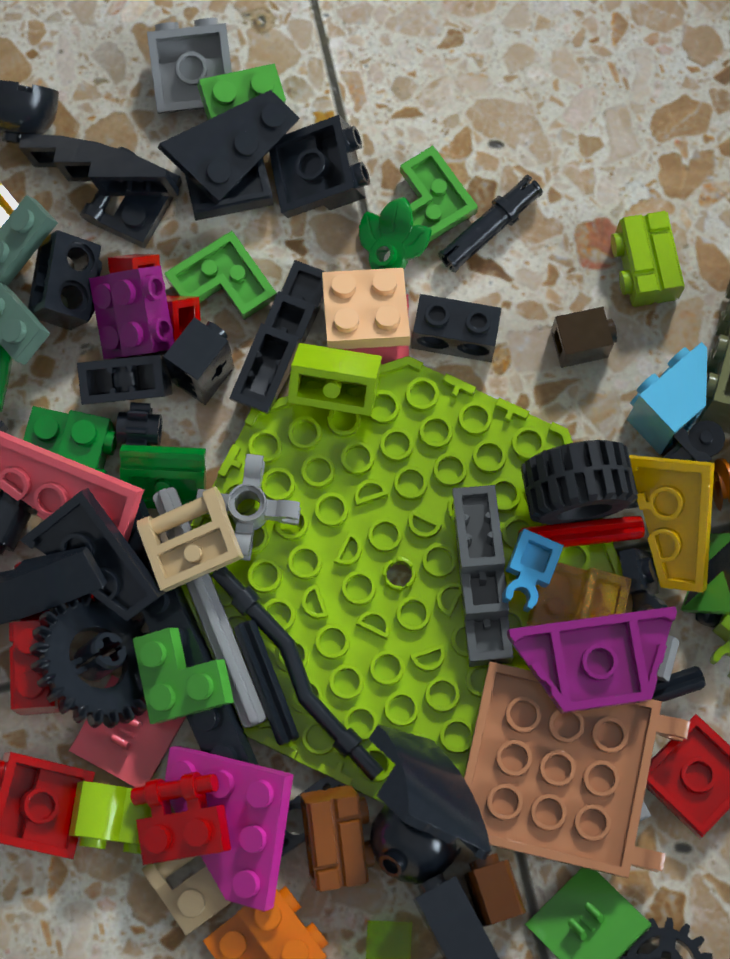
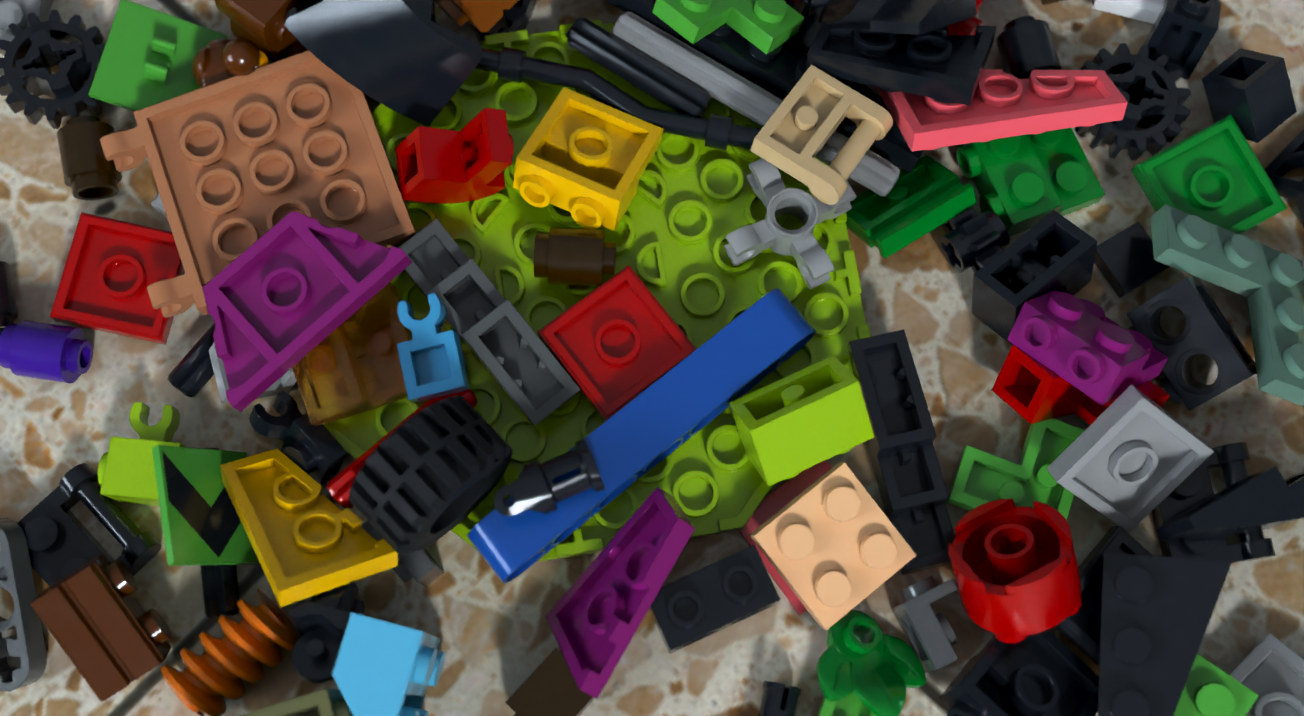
camera: 145 degrees right, 0 degrees up
(53, 361) = (1128, 260): none -> black tile
(162, 238) = (1129, 459): none -> light grey plate
(200, 360) = (969, 346): black brick -> none
(253, 230) = (1015, 568): none -> red brick
(343, 240) = (925, 631): none -> dark grey bracket
(345, 634) = (585, 160): none -> yellow plate
(398, 576) = (574, 256): none -> dark brown brick
(409, 504) = (616, 342): none -> red plate
(427, 438) = (652, 428): none -> blue beam
(433, 688) = (455, 165): none -> red brick
(508, 362) = (617, 589): none -> magenta wing
(517, 431) = (535, 486): none -> black piece
(540, 880) = (226, 59): none -> reddish brown animal
(677, 883) = (84, 161): none -> dark brown brick

